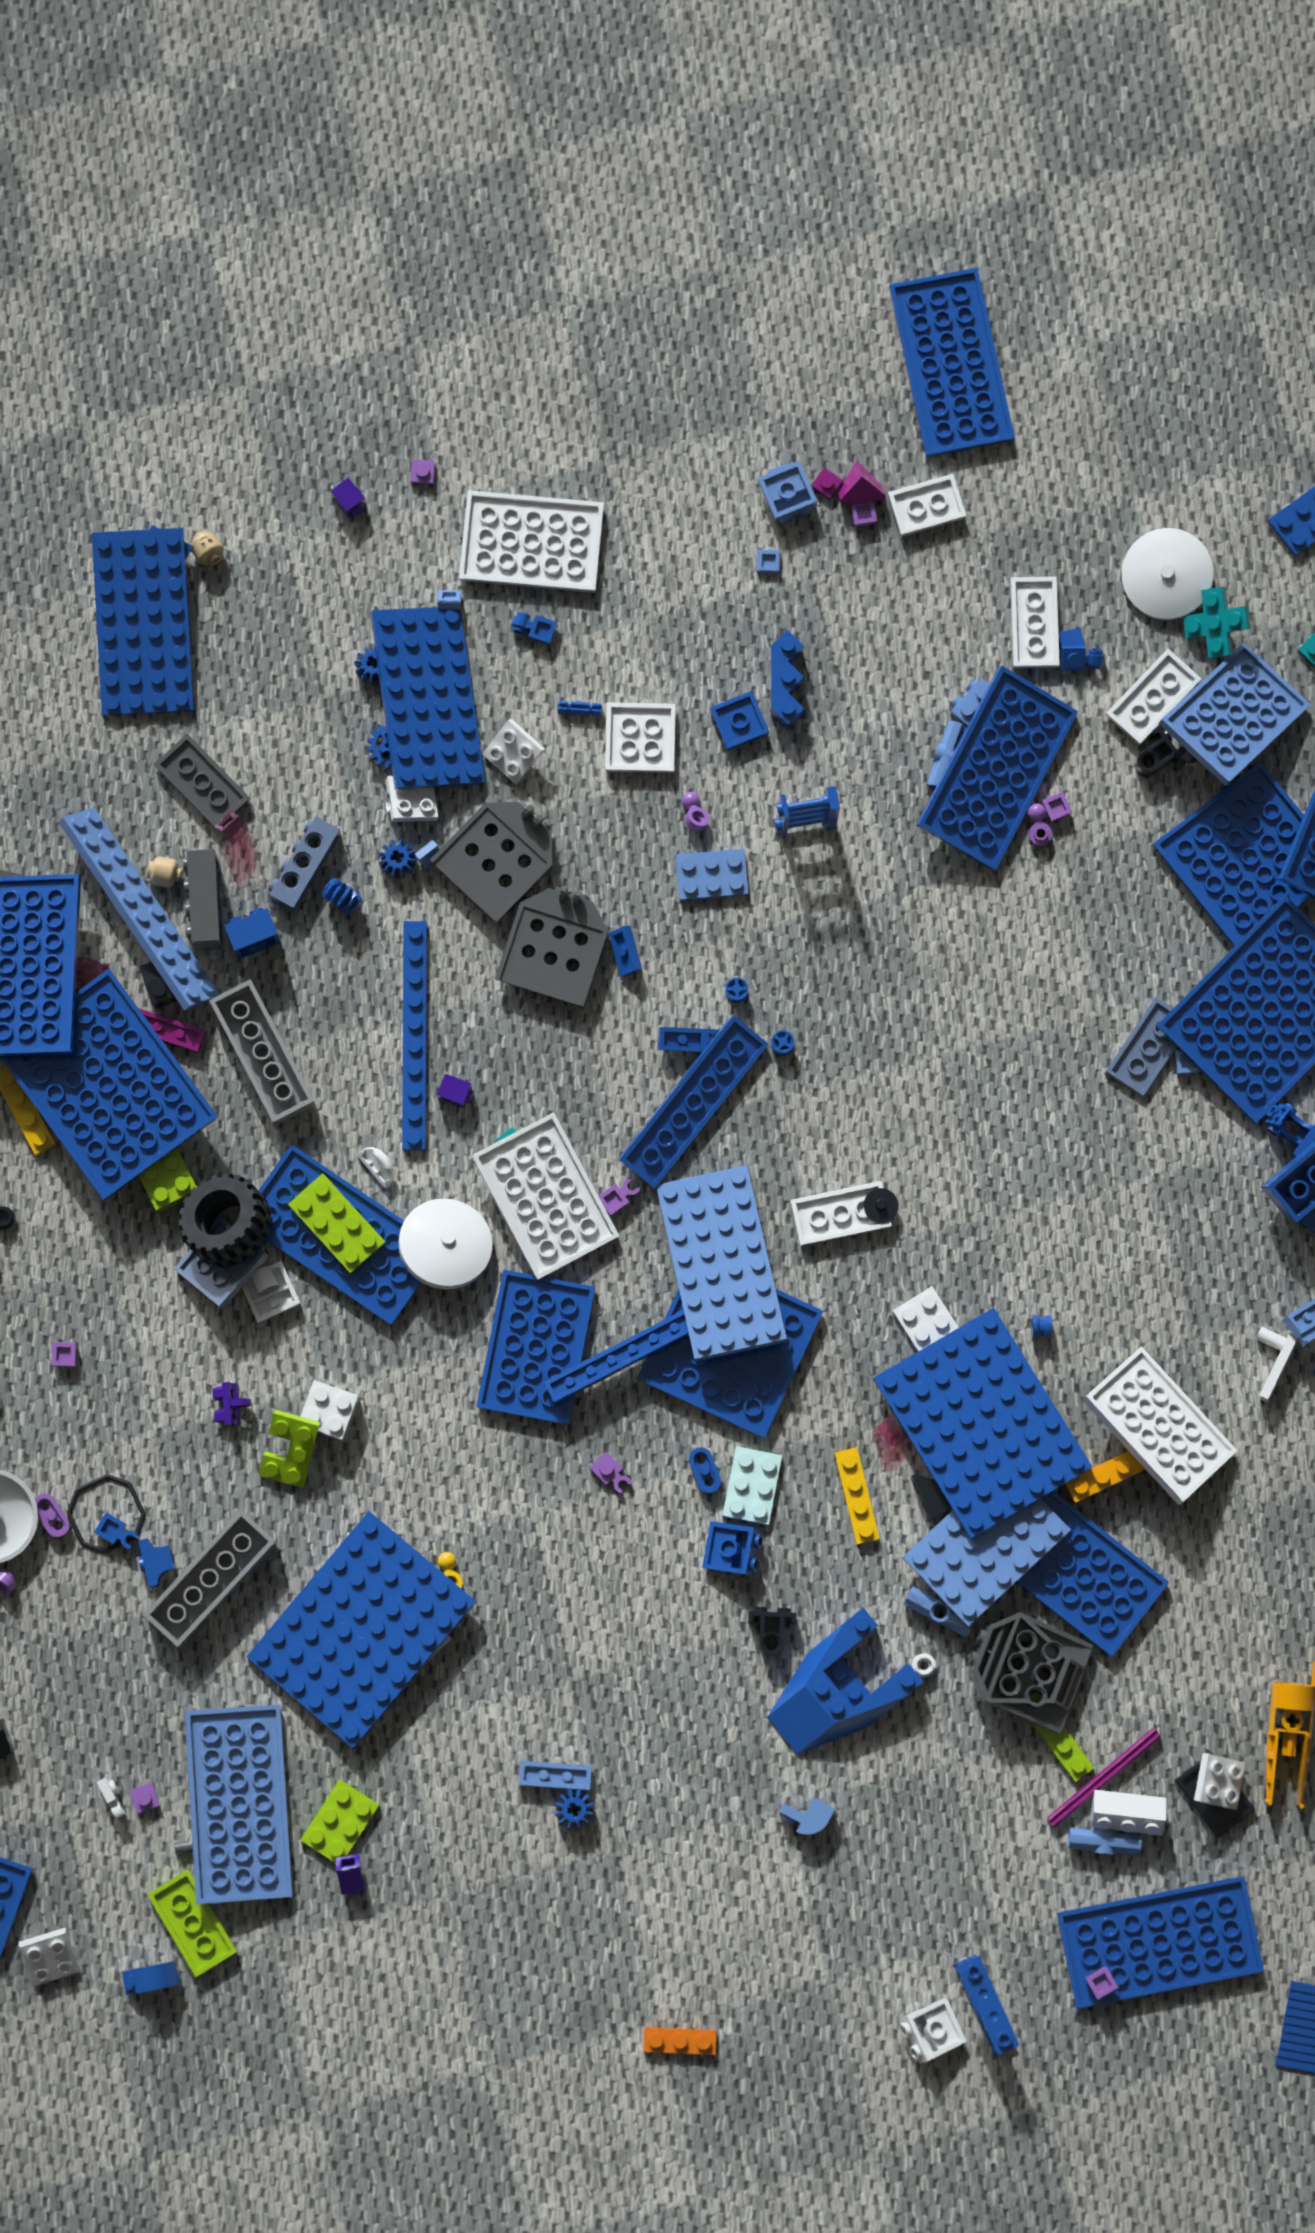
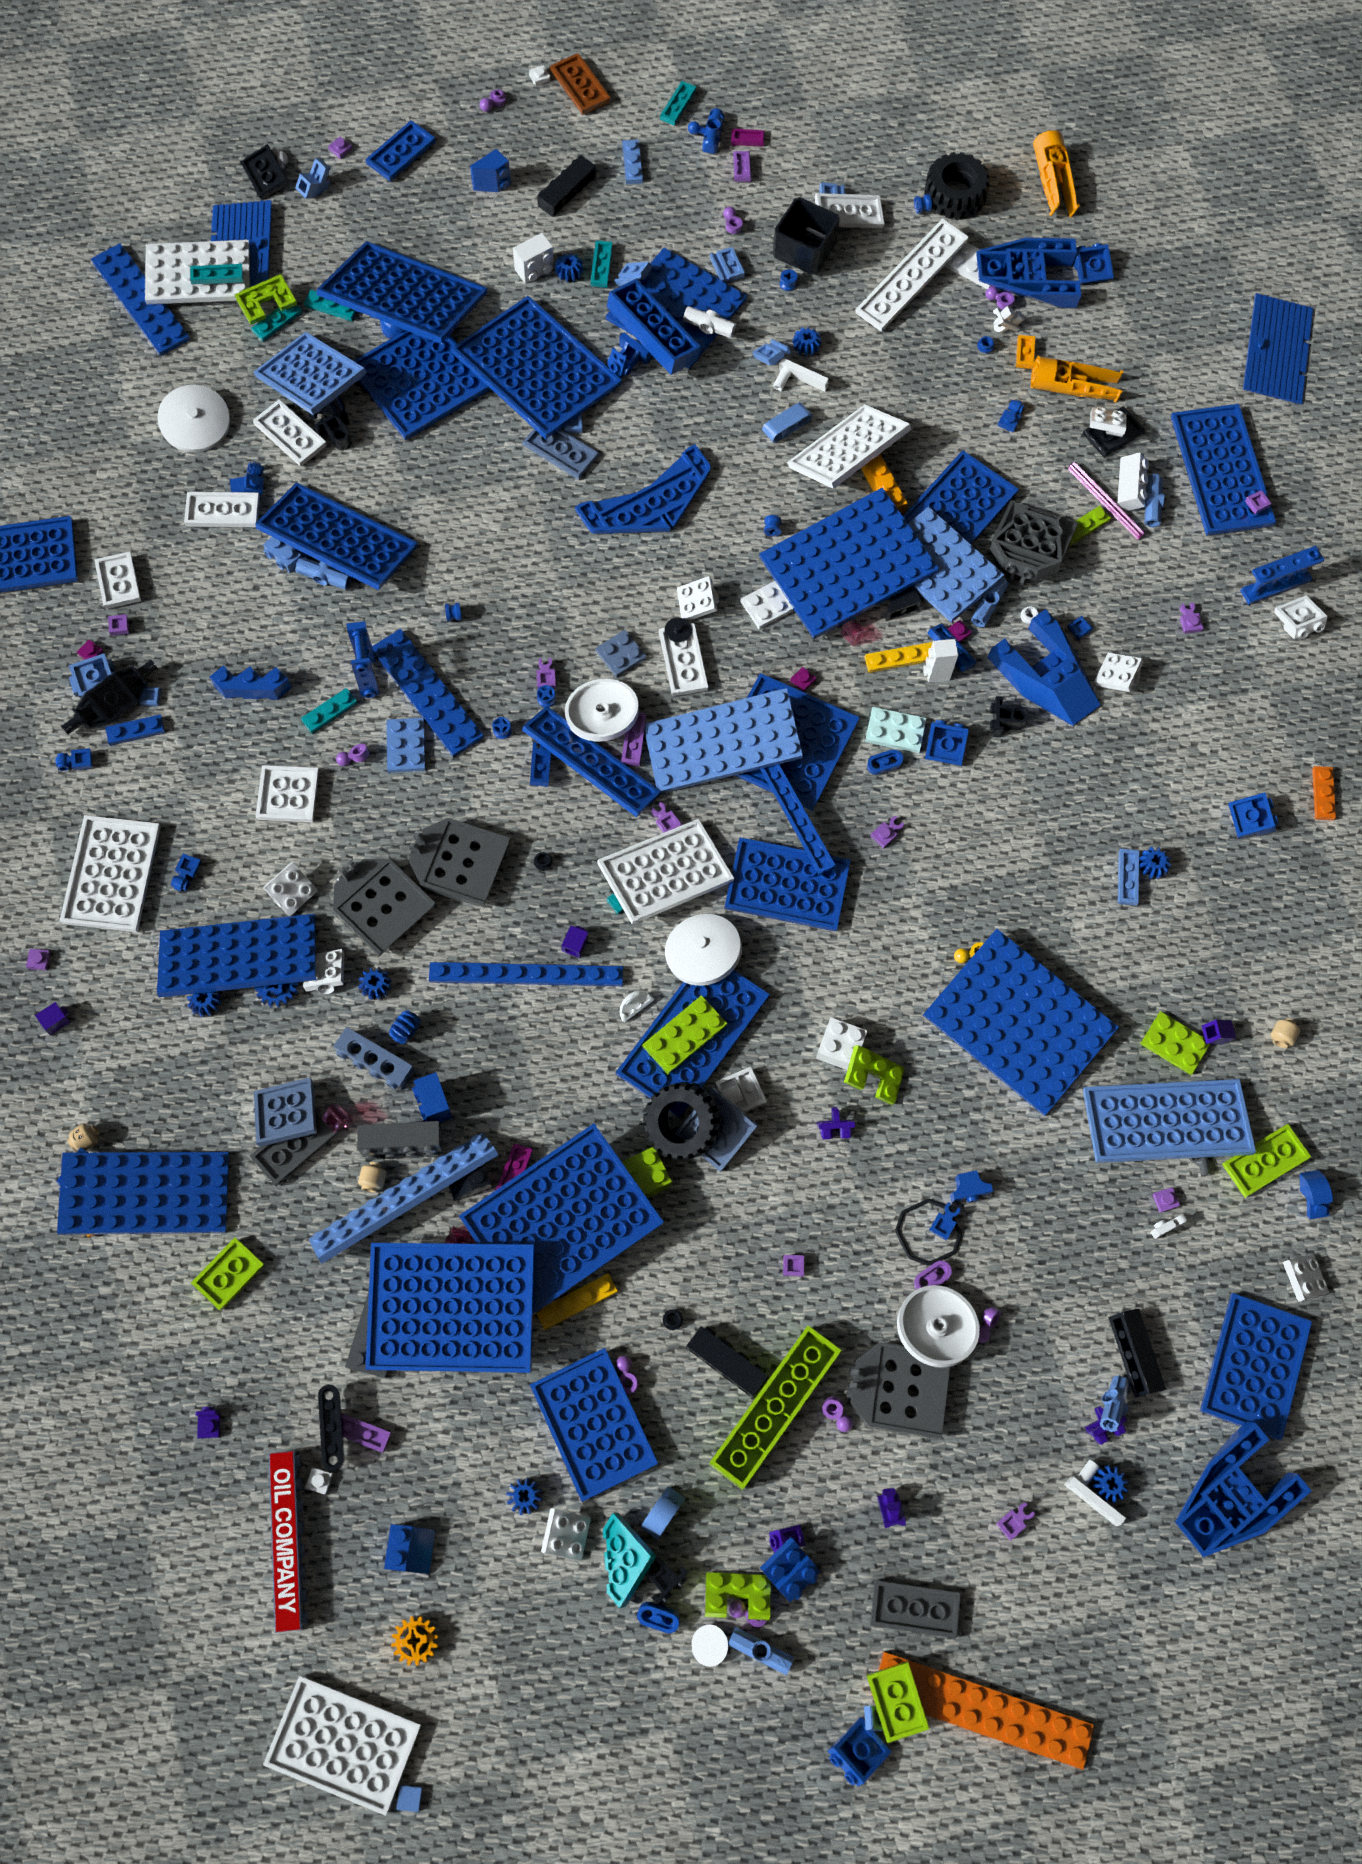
camera: 90 degrees left, 10 degrees down
(53, 722) = (227, 1274): none -> lime plate
(210, 1579) = (984, 1141): light grey brick -> none
(237, 768) = (284, 1112): none -> sand blue plate
(262, 1052) = (536, 1093): light grey brick -> none
(351, 1959) = (1285, 1033): none -> tan head
(426, 853) = (373, 958): medium blue tile -> none
(449, 599) = (153, 938): medium blue tile -> none
(560, 1049) = (543, 861): none -> black plate
(579, 708) = (258, 840): blue axle -> none
(625, 951) = (465, 808): blue plate -> none
(641, 1942) = (1253, 815): none -> blue plate
(679, 487) = (79, 759): none -> blue plate
(721, 549) = (135, 730): none -> blue plate
(727, 1154) = (633, 742): none -> medium lavender plate
(739, 720) = (280, 720): blue plate -> none
(755, 778) = (329, 710): none -> teal plate
(758, 516) = (110, 697): none -> black plate
(761, 1111) = (602, 710): none -> white dish
(785, 895) = (427, 693): none -> blue plate
(809, 1042) = (546, 675): none -> medium lavender plate
(812, 1821) = (1151, 693): medium blue brick -> none
(820, 1367) = (803, 679): none -> magenta plate
(838, 1538) = (941, 660): none -> white brick
(840, 1779) = (1119, 672): none -> white plate
(848, 1134) = (620, 653): none -> sand blue plate
(860, 486) = (95, 626): magenta slope -> none
(870, 1559) = (964, 659): none -> blue plate
(896, 1570) = (959, 631): none -> magenta plate
(897, 921) = (453, 612): none -> blue wheel
(909, 1732) = (1079, 627): none -> blue tile
(923, 1882) = (1190, 622): none -> medium lavender plate
(926, 1230) = (697, 599): none -> white plate
(1037, 813) = (375, 513): medium lavender plate -> none
(1056, 807) = (370, 500): medium lavender plate -> none
(1077, 1184) = (646, 509): none -> blue wing
(1202, 1346) = (787, 422): none -> medium blue beam
(1217, 622) = (236, 383): teal plate -> none
(1226, 1650) = (1010, 418): none -> blue plate

